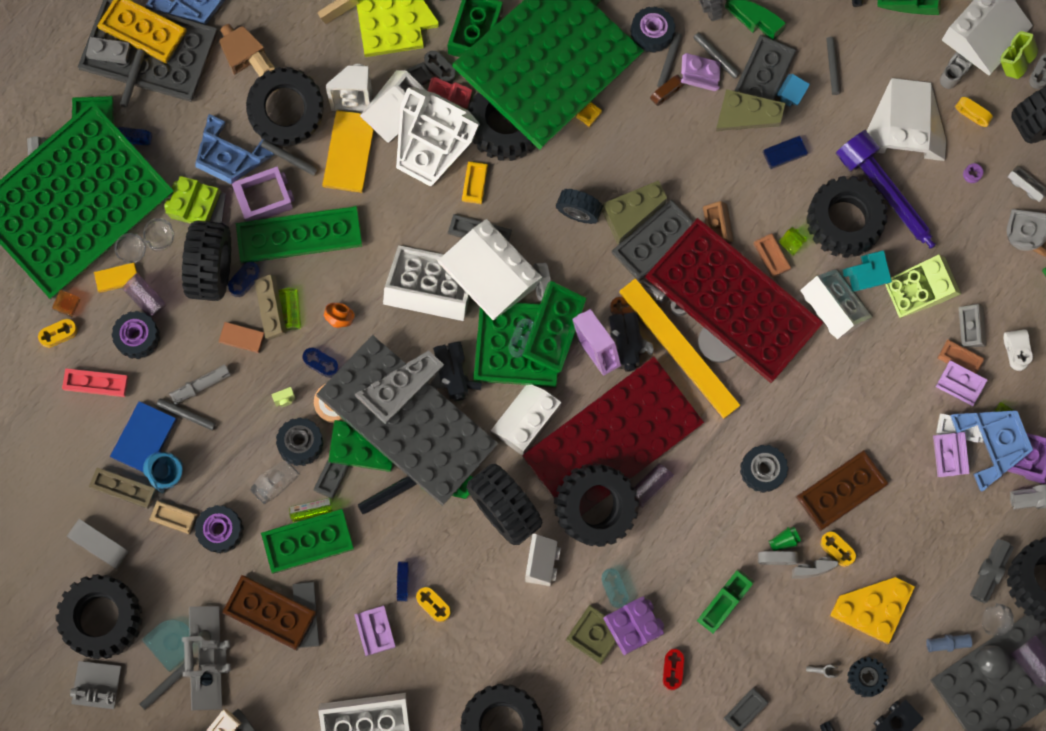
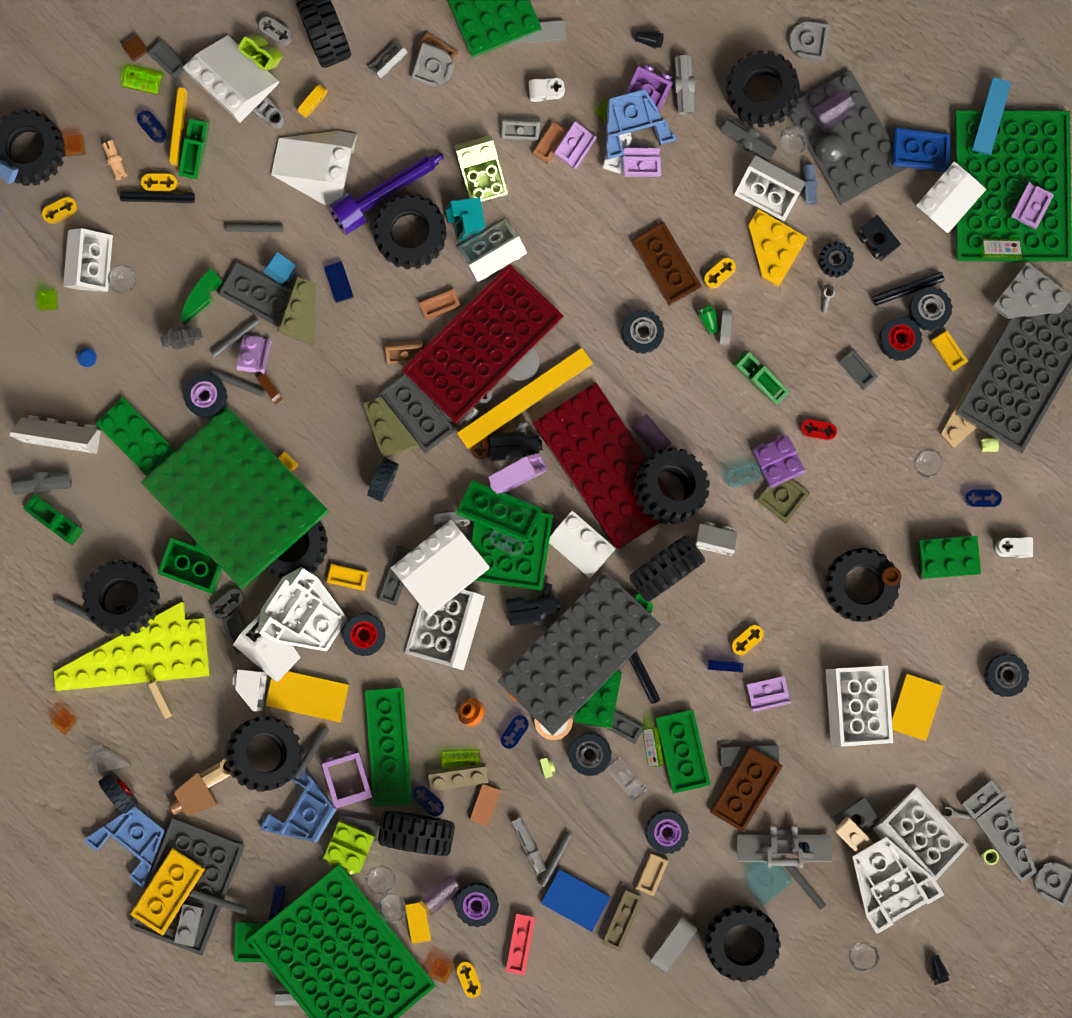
camera: 85 degrees left, 10 degrees up
(95, 685) = (801, 948): light grey hinge -> none
(163, 470) = (611, 881): dark azure helmet -> none
(394, 391) = (555, 662): light grey wing -> none
(412, 190) = (355, 643): none -> black wheel
(453, 92) = (255, 596): coral slope -> none
(792, 241) = (428, 283): clear neon green tile -> none
(820, 567) = (737, 291): light grey slope -> none
(939, 597) = (769, 188): none -> white slope
(975, 168) = (377, 112): medium lavender bush -> none

